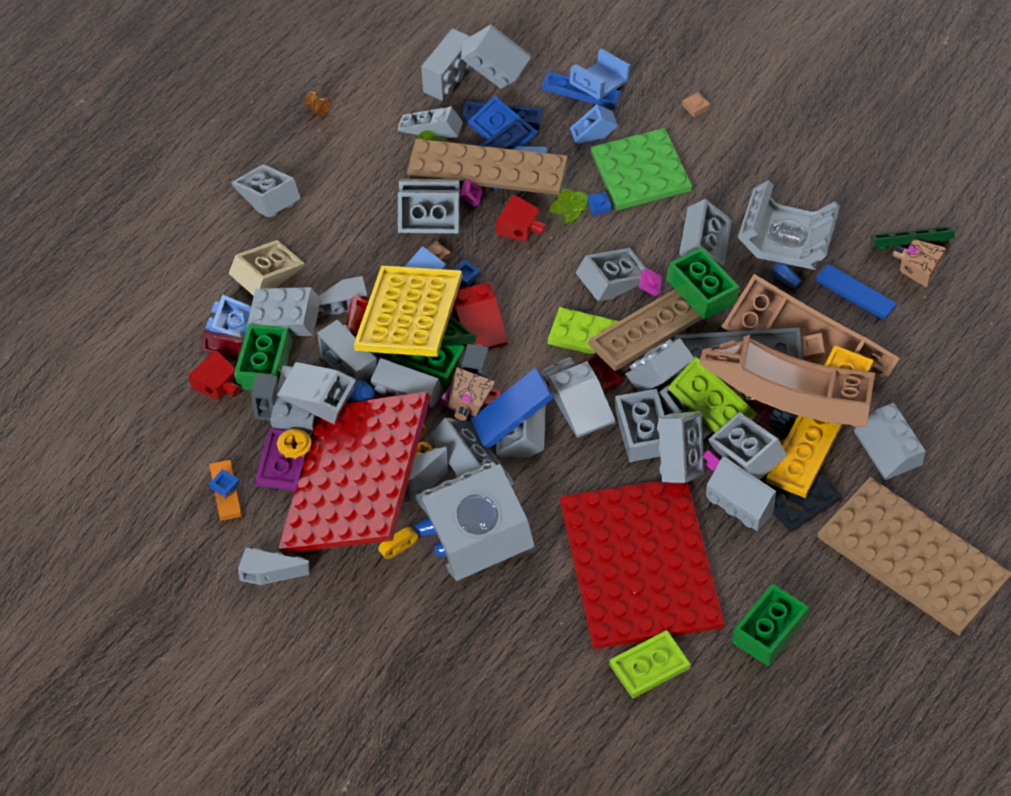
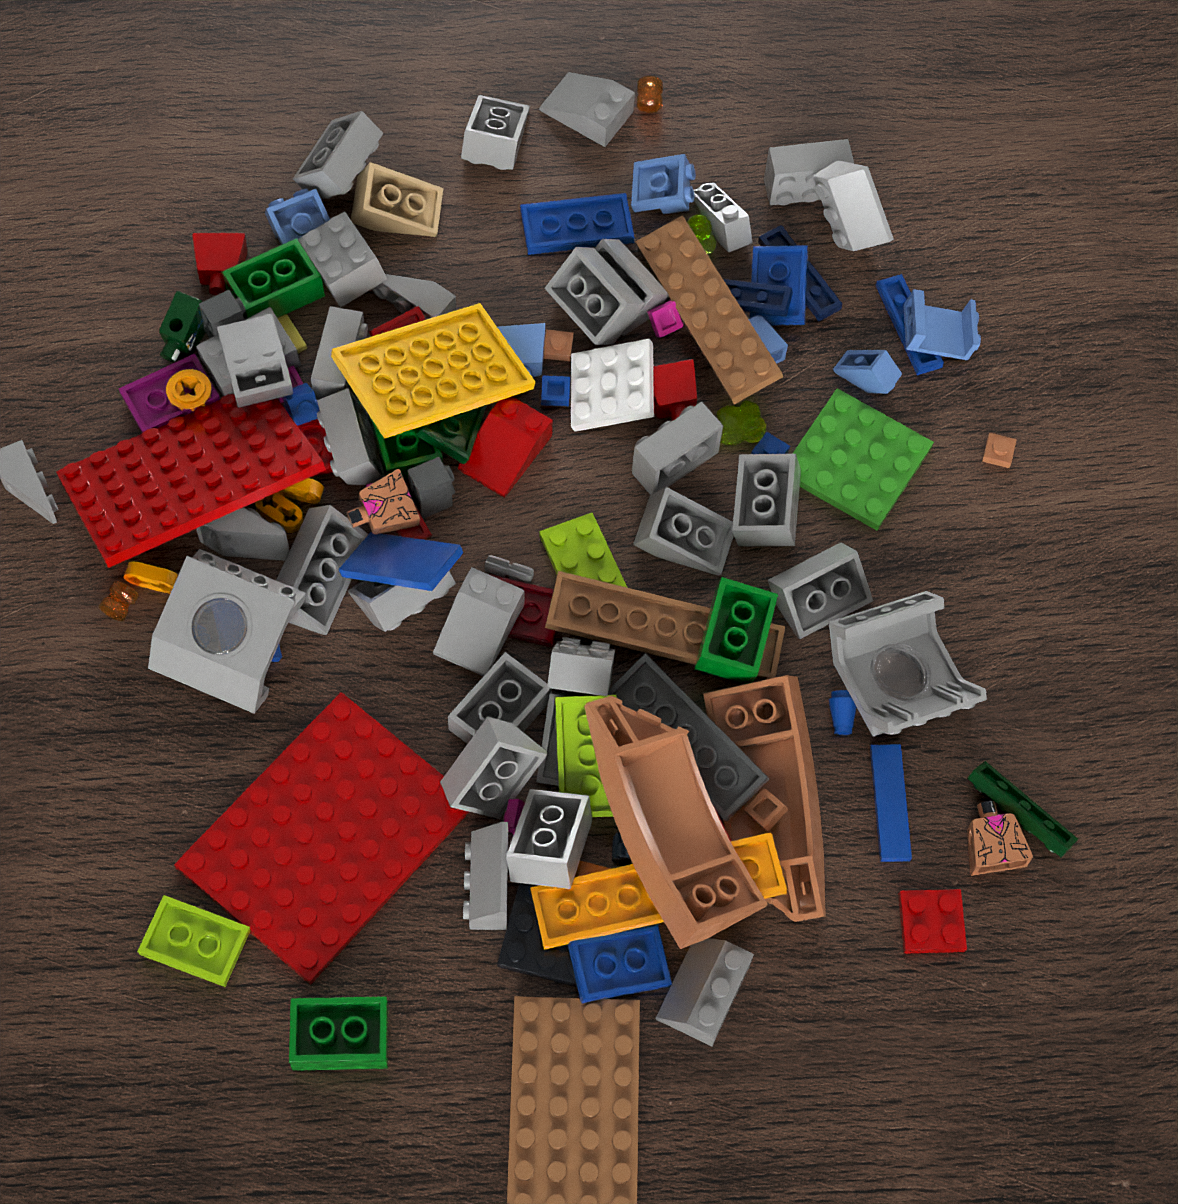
camera: 45 degrees right, 10 degrees up
(210, 269) = (339, 155): none -> light grey brick
(224, 483) = (88, 363): blue plate -> none
(225, 344) = (262, 230): dark red tile -> none
(229, 507) = (91, 371): orange tile -> none
(247, 420) = (181, 327): none -> dark green torso
(294, 135) = (590, 106): none -> light grey slope
(365, 194) = (576, 223): none -> blue tile
(383, 136) = (663, 184): none -> medium blue plate
(397, 567) = (118, 601): none -> clear orange wheel
(491, 242) = (612, 385): none -> white plate
(561, 239) = (676, 448): none -> light grey brick
(632, 220) = (766, 500): none -> light grey brick
(650, 282) = (705, 577): dark pink plate -> none
(842, 471) = (619, 964): none -> blue tile
(938, 320) = (932, 921): none -> red plate

